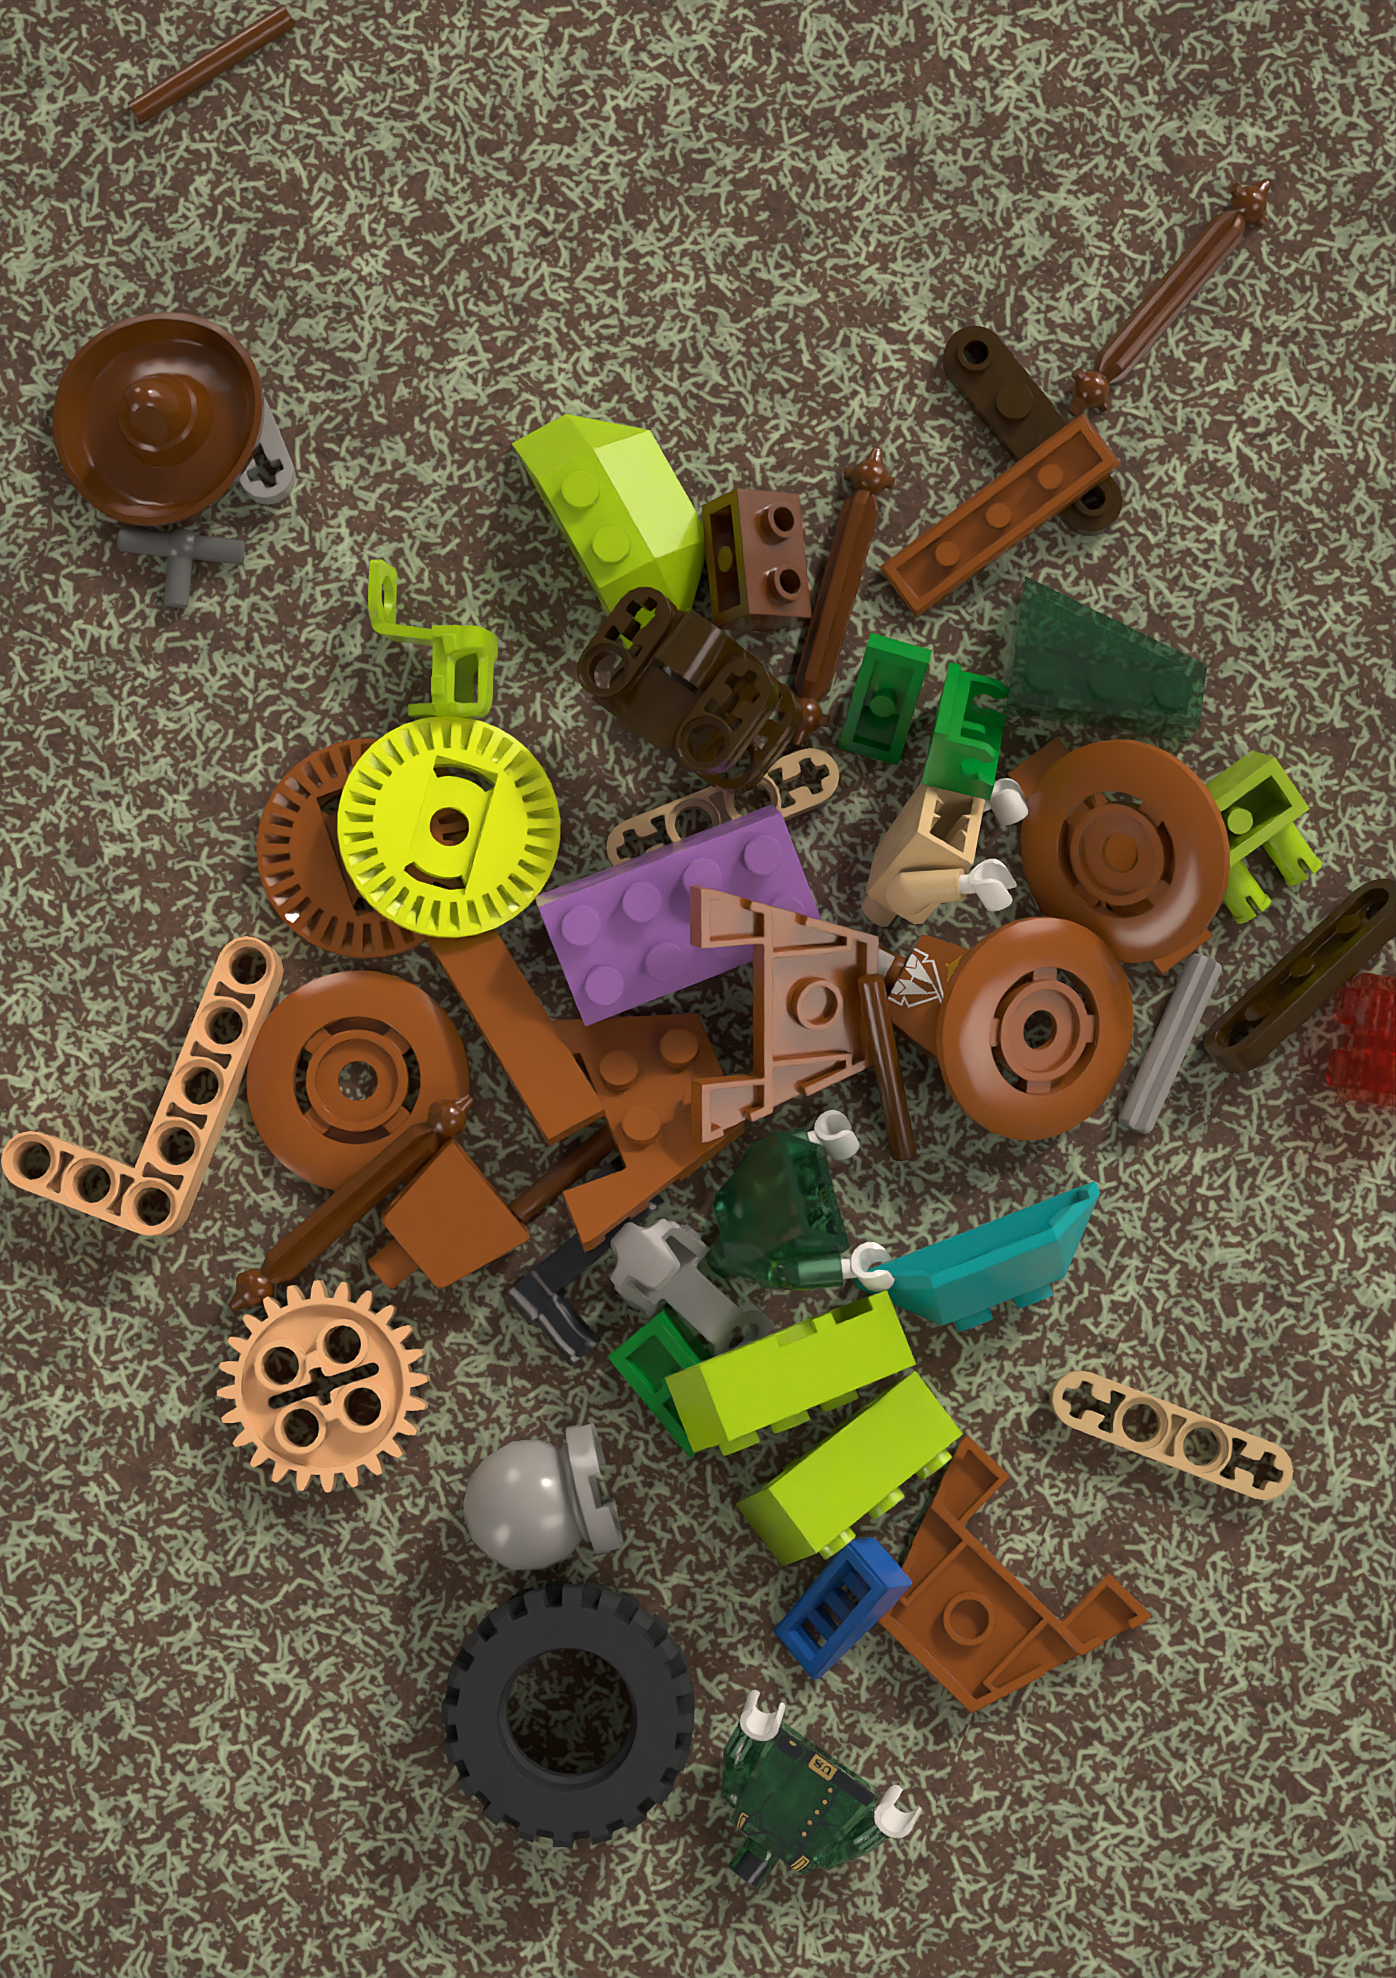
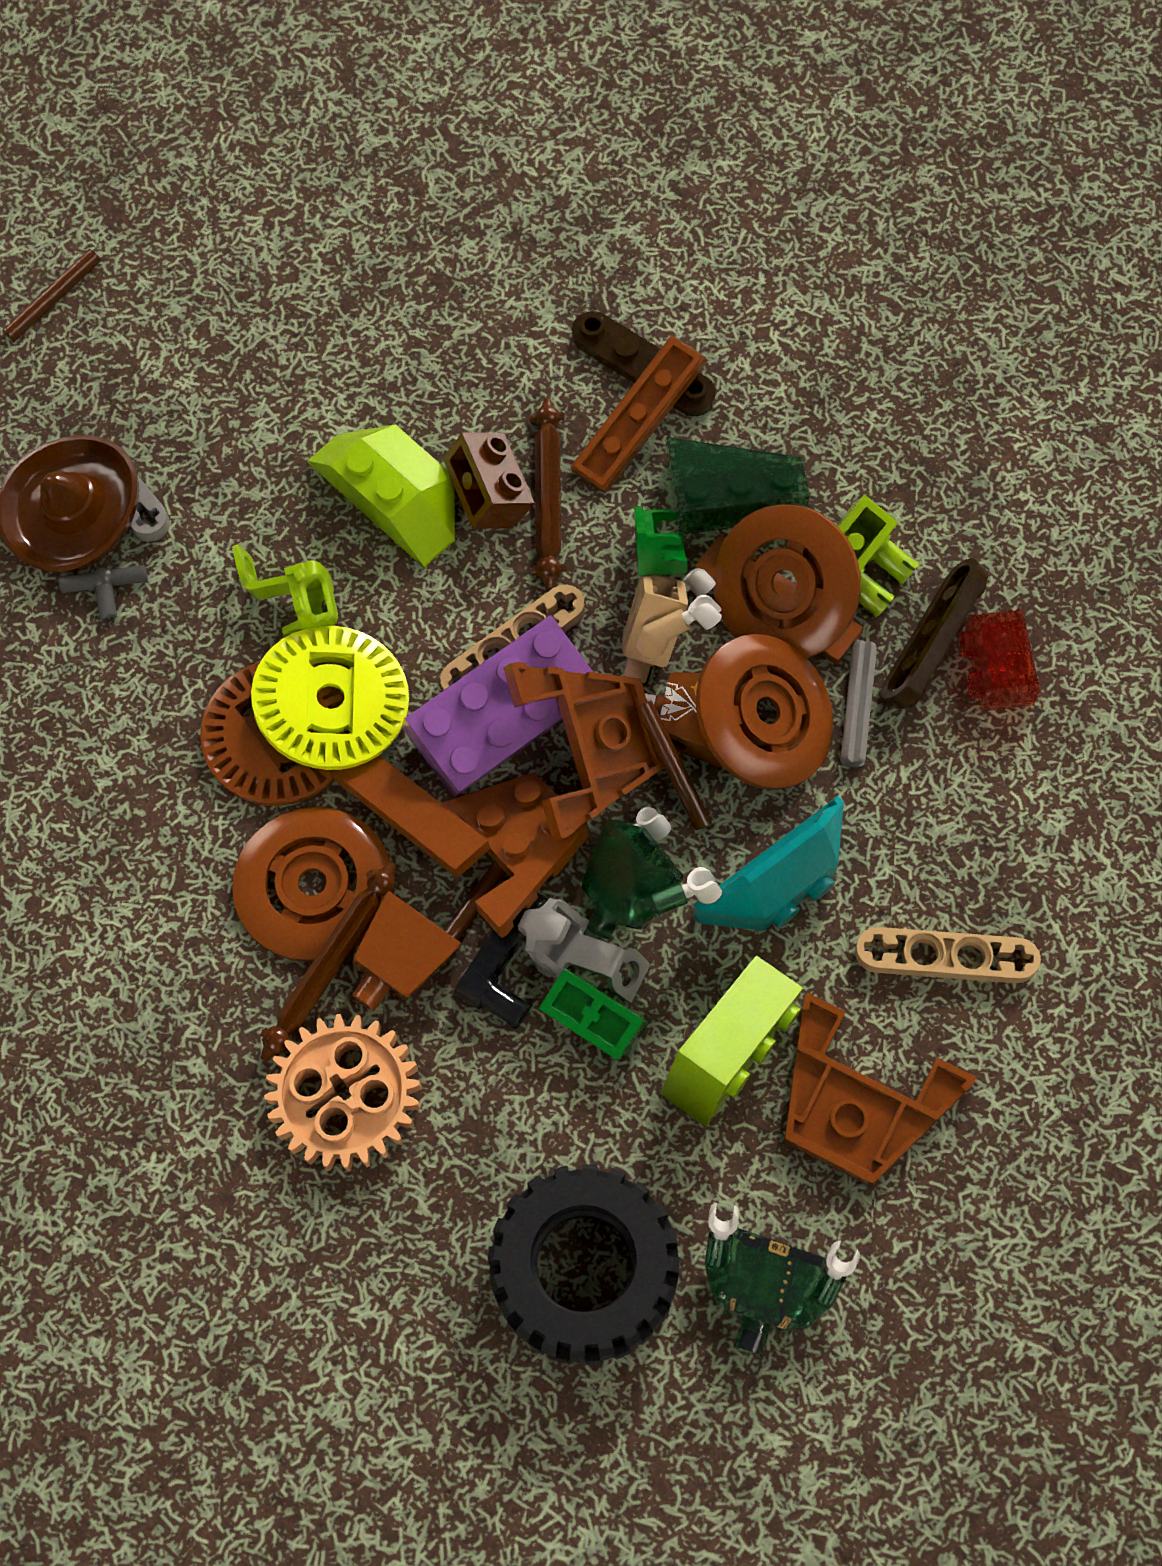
camera: 15 degrees left, 15 degrees down
(176, 1111) = (190, 938): light nougat beam -> none
(540, 1501) = (518, 1121): light grey tile -> none
(690, 690) = (468, 559): dark brown piece -> none
(788, 1373) = (669, 977): lime wedge -> none
(873, 1580) = (777, 1128): blue slope -> none
(884, 698) = (598, 540): green slope -> none
(1169, 297) = (705, 264): reddish brown wheel -> none

